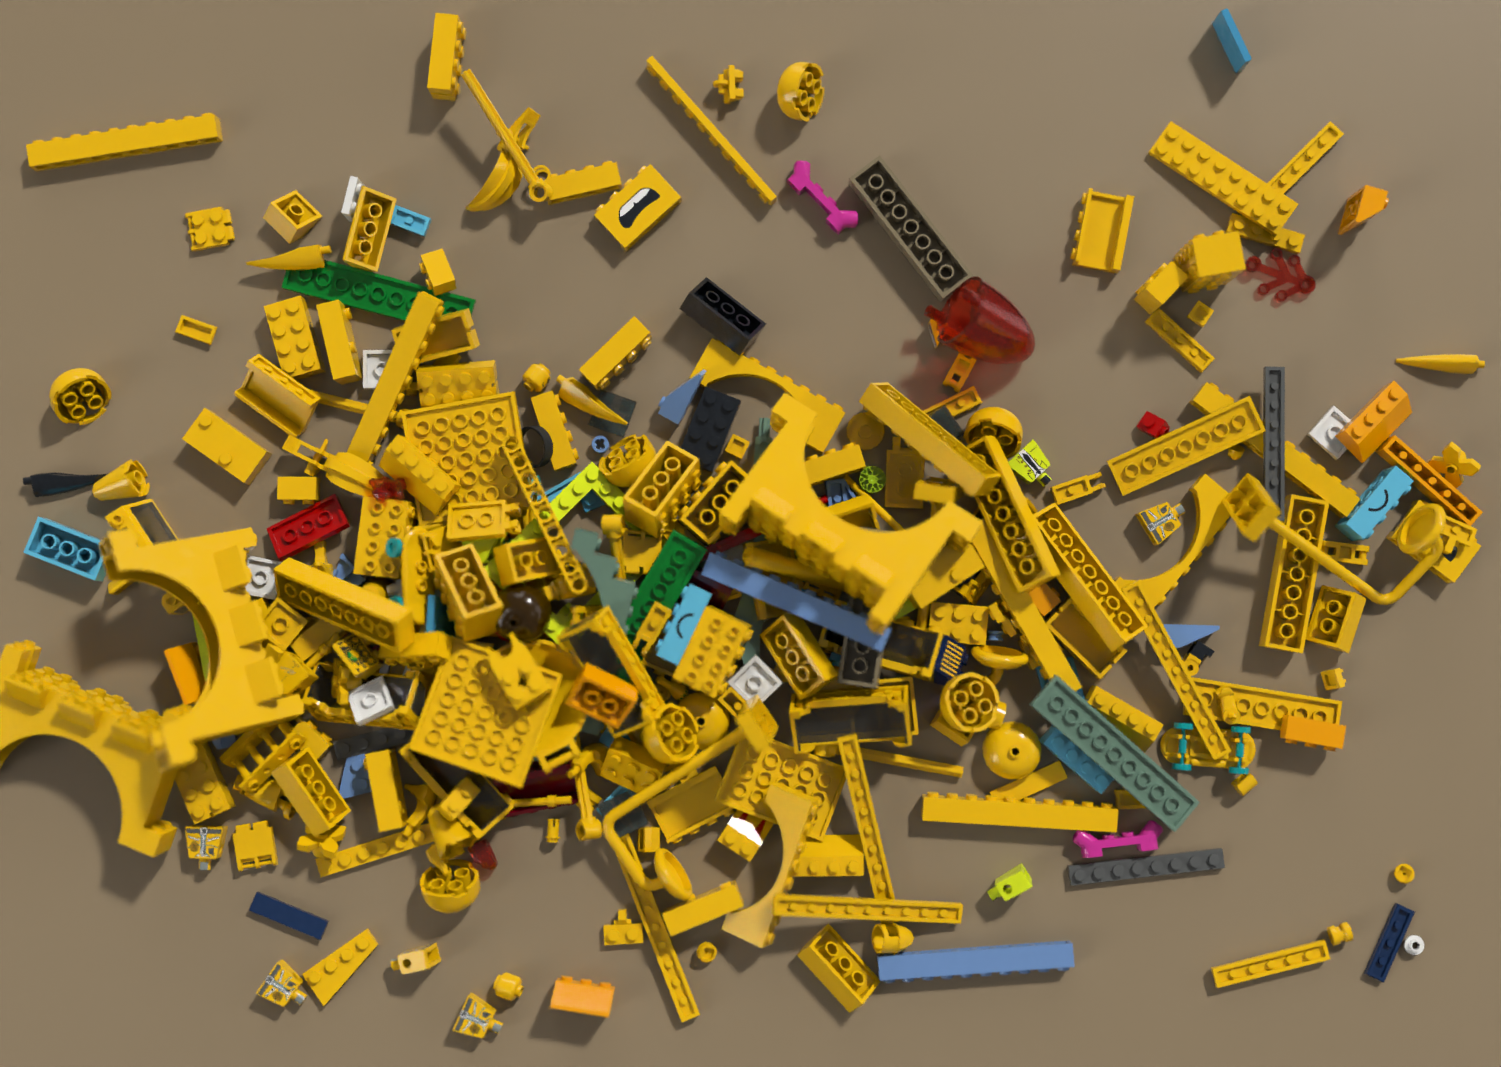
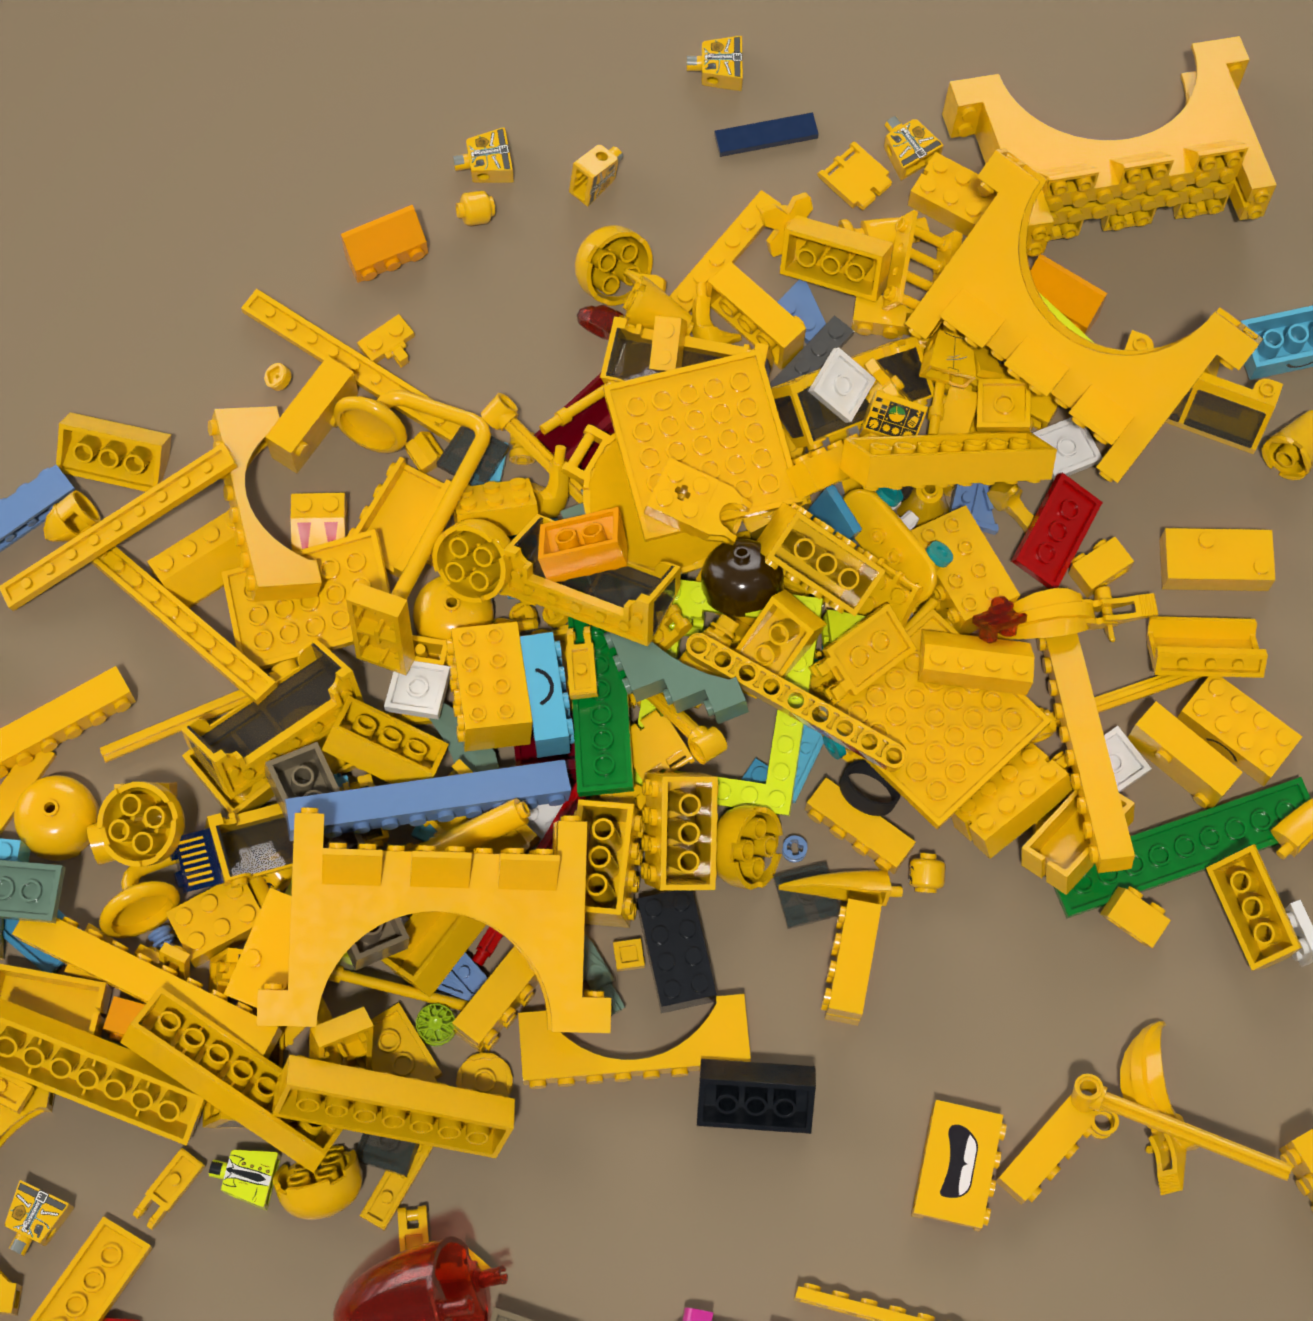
camera: 145 degrees right, 15 degrees down
(334, 970) = (675, 117): yellow wing -> none
(410, 221) = (1216, 959): medium azure plate -> none
(553, 832) = (540, 392): yellow pin -> none
(678, 401) = (737, 958): medium blue slope -> none

